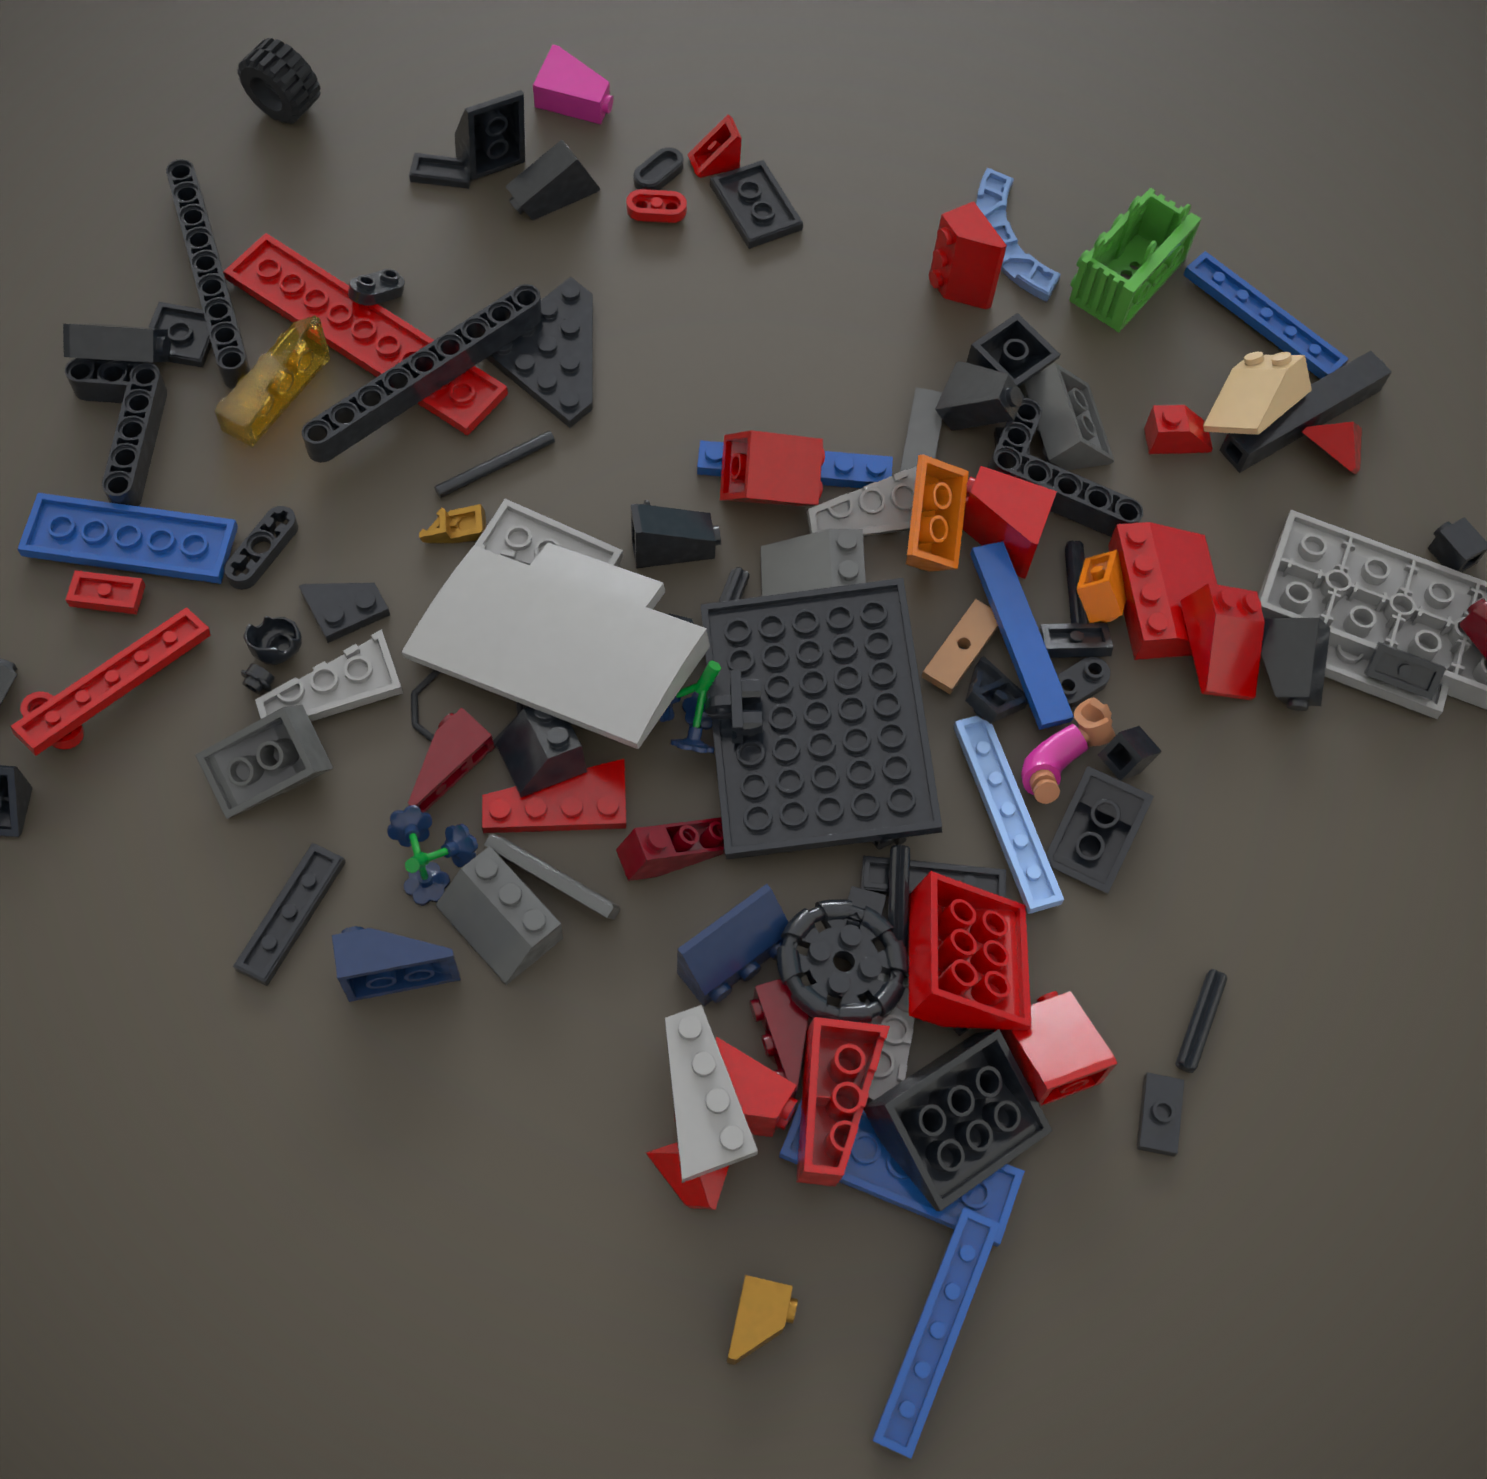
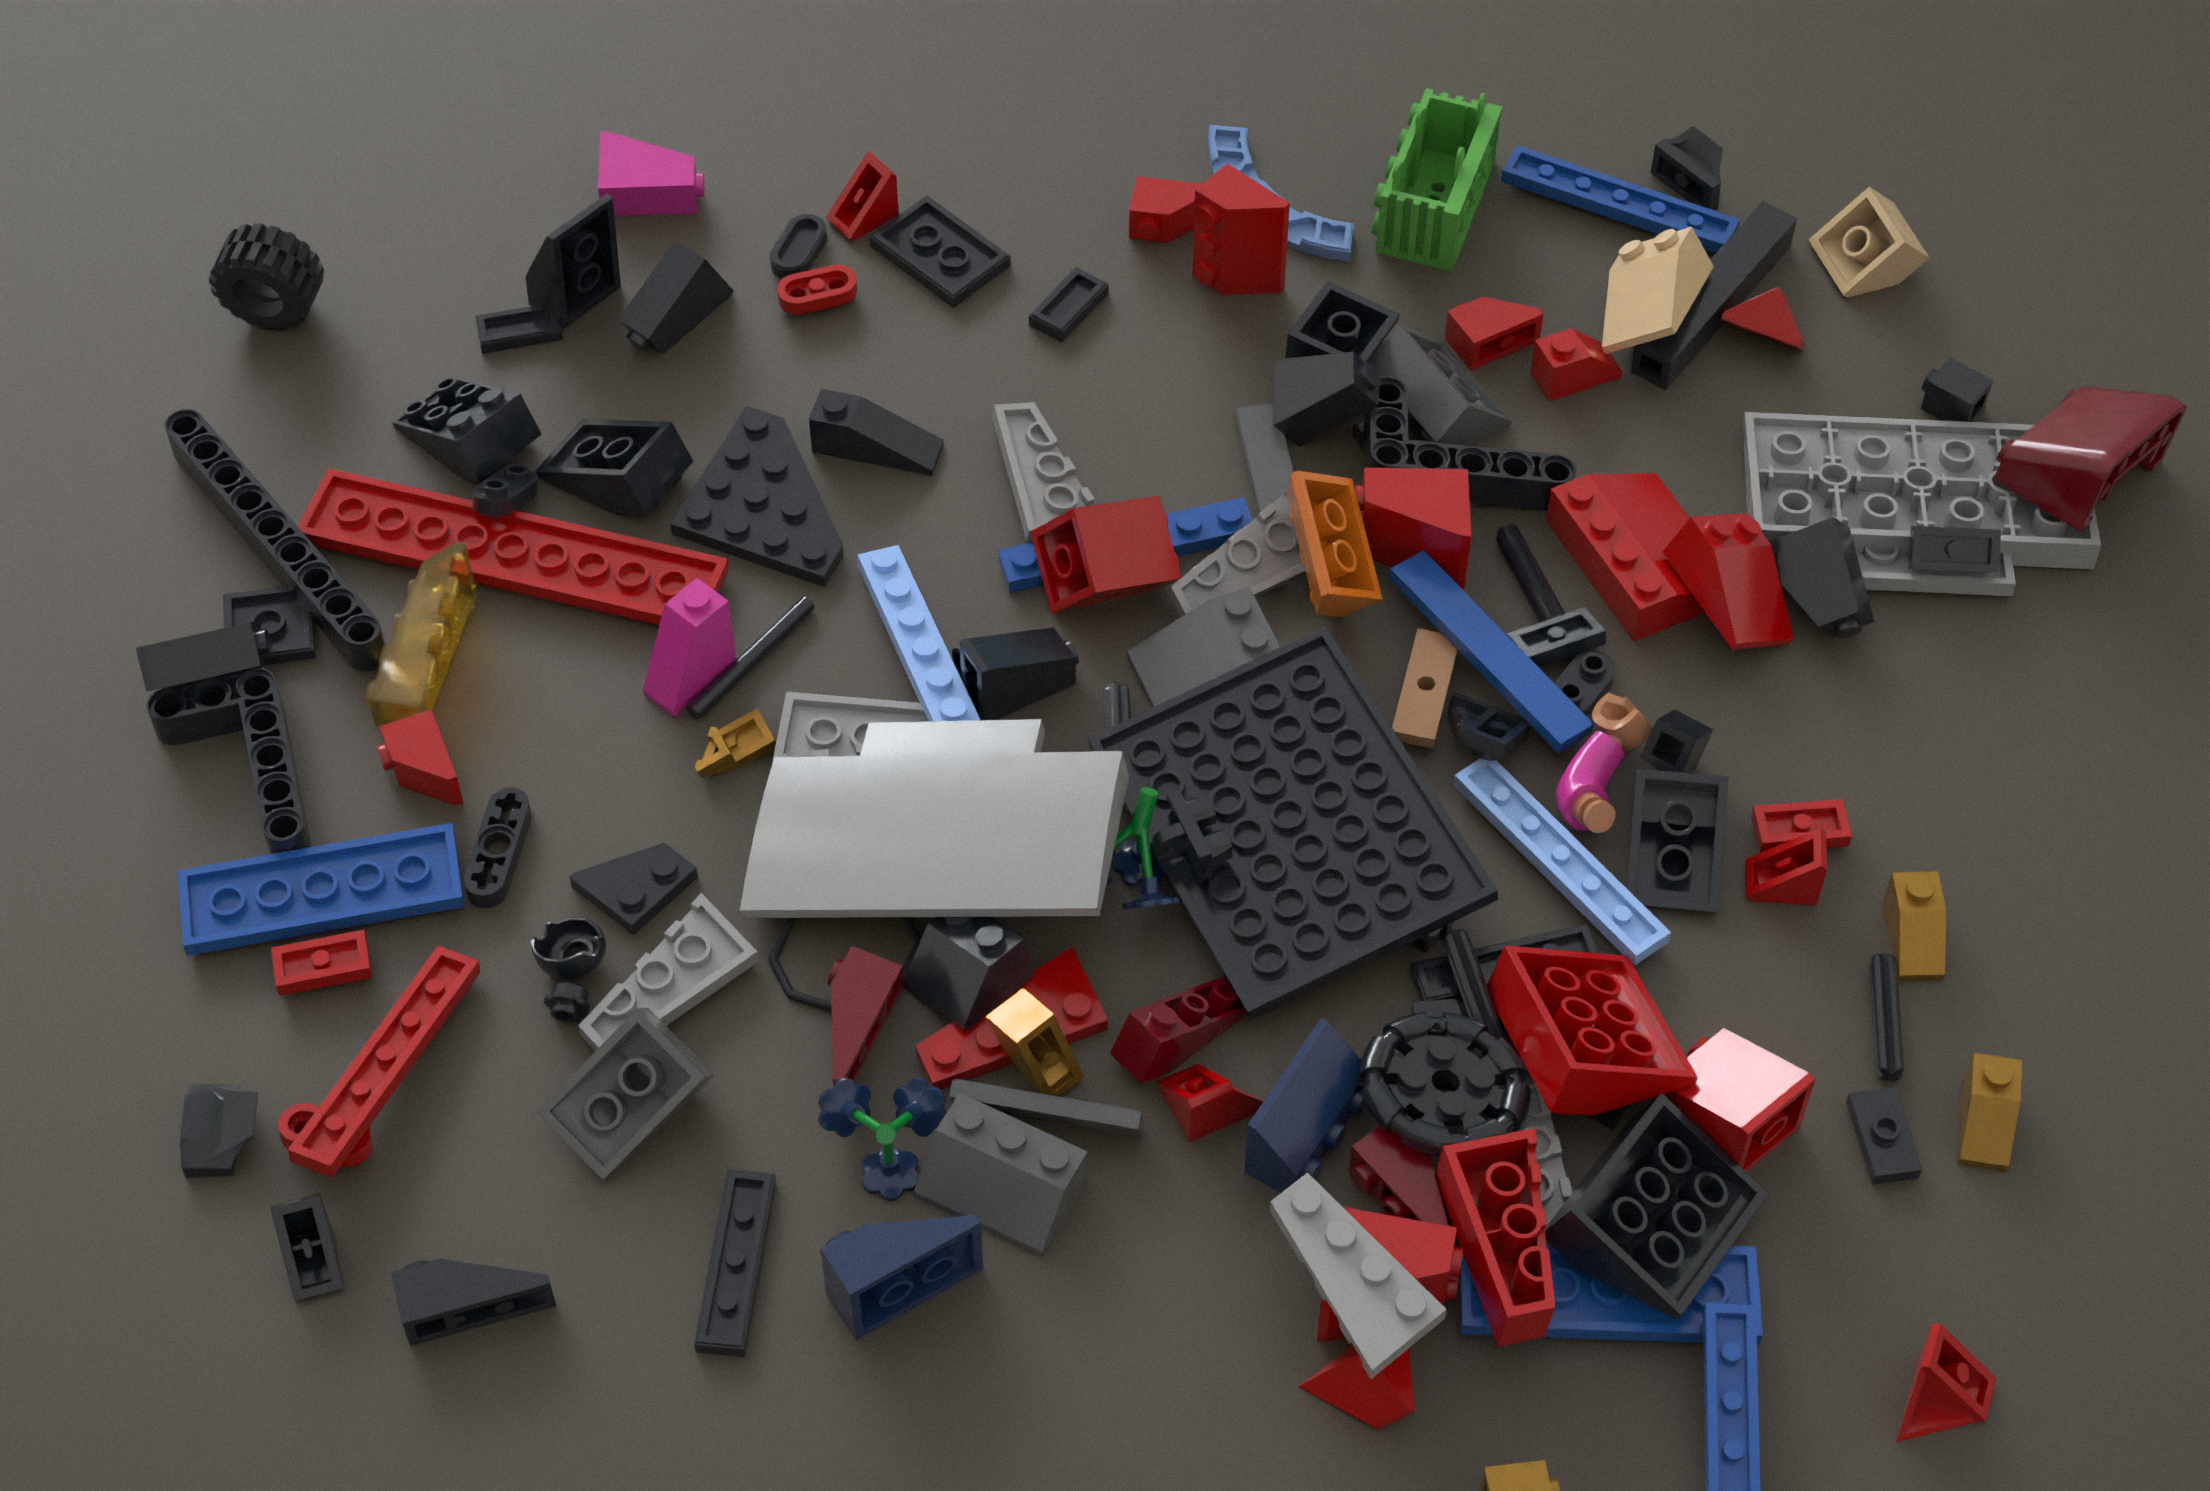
camera: 15 degrees left, 10 degrees down
(80, 871) = (458, 1296): none -> black slope
(236, 463) = (419, 757): none -> red slope
(374, 232) = (469, 426): none -> black slope
(422, 373) = (617, 574): black beam -> none
(448, 444) = (690, 647): none -> dark pink slope
(458, 287) = (618, 463): none -> black slope
(561, 827) = (1035, 1044): none -> pearl gold slope
(613, 489) = (915, 636): none -> light blue plate
(647, 325) = (868, 433): none -> black slope
(671, 908) = (1205, 1101): none -> red slope
(754, 388) = (1037, 471): none -> light grey wing
(830, 271) = (1068, 304): none -> black tile
(920, 219) = (1161, 209): none -> red slope
(1102, 587) = (1563, 567): orange slope -> none
(1122, 1337) = (1946, 1388): none -> red slope
(1127, 386) = (1491, 329): none -> red slope
(1173, 881) = (1789, 871): none -> red slope
(1198, 848) = (1783, 822): none -> red plate
(1248, 1126) = (1989, 1111): none -> pearl gold slope
(1253, 957) = (1916, 924): none -> pearl gold slope
(1327, 307) = (1690, 167): none -> black slope
(1439, 409) = (1868, 245): none -> tan slope

